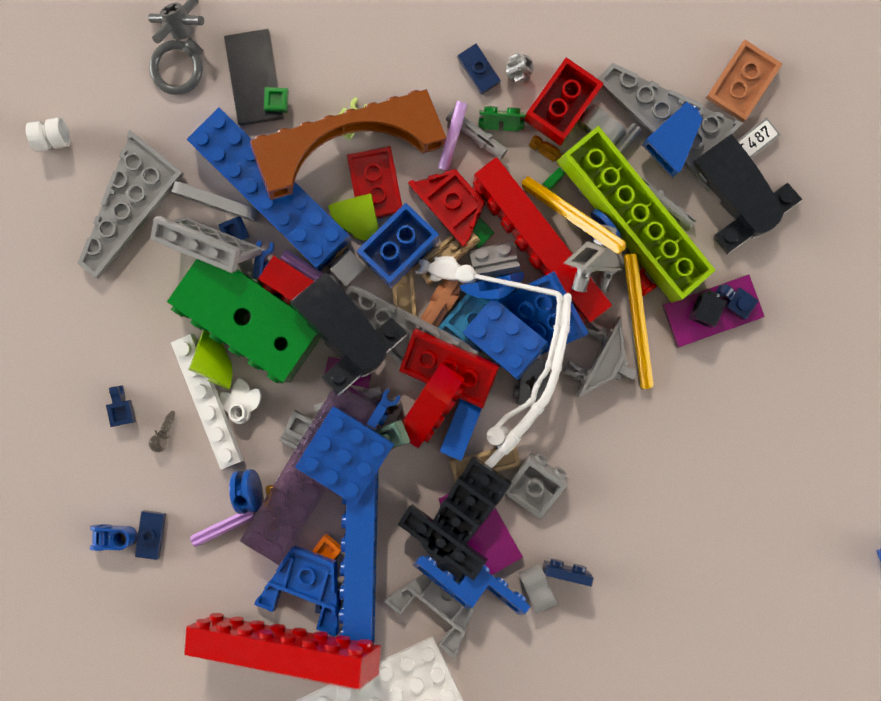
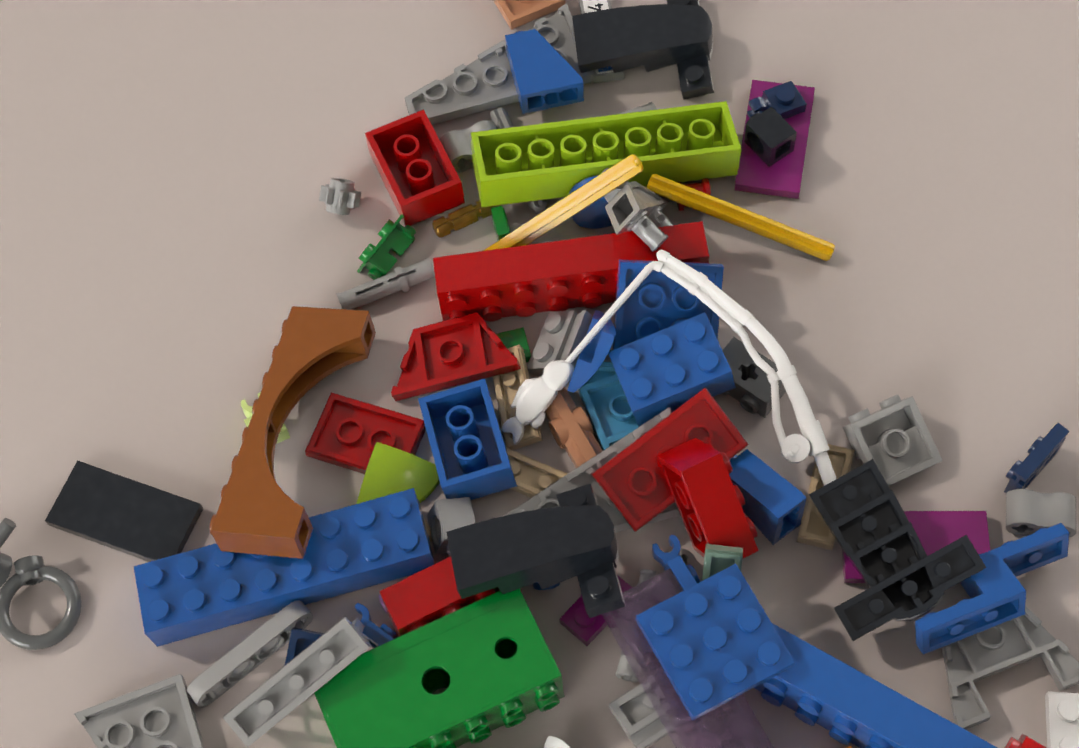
camera: 55 degrees left, 25 degrees down
(276, 99) = (174, 497): green tile -> none
(452, 136) = (364, 302): lavender piece -> none
(478, 69) = (307, 244): dark blue plate -> none
(609, 361) = (771, 277): light grey connector -> none

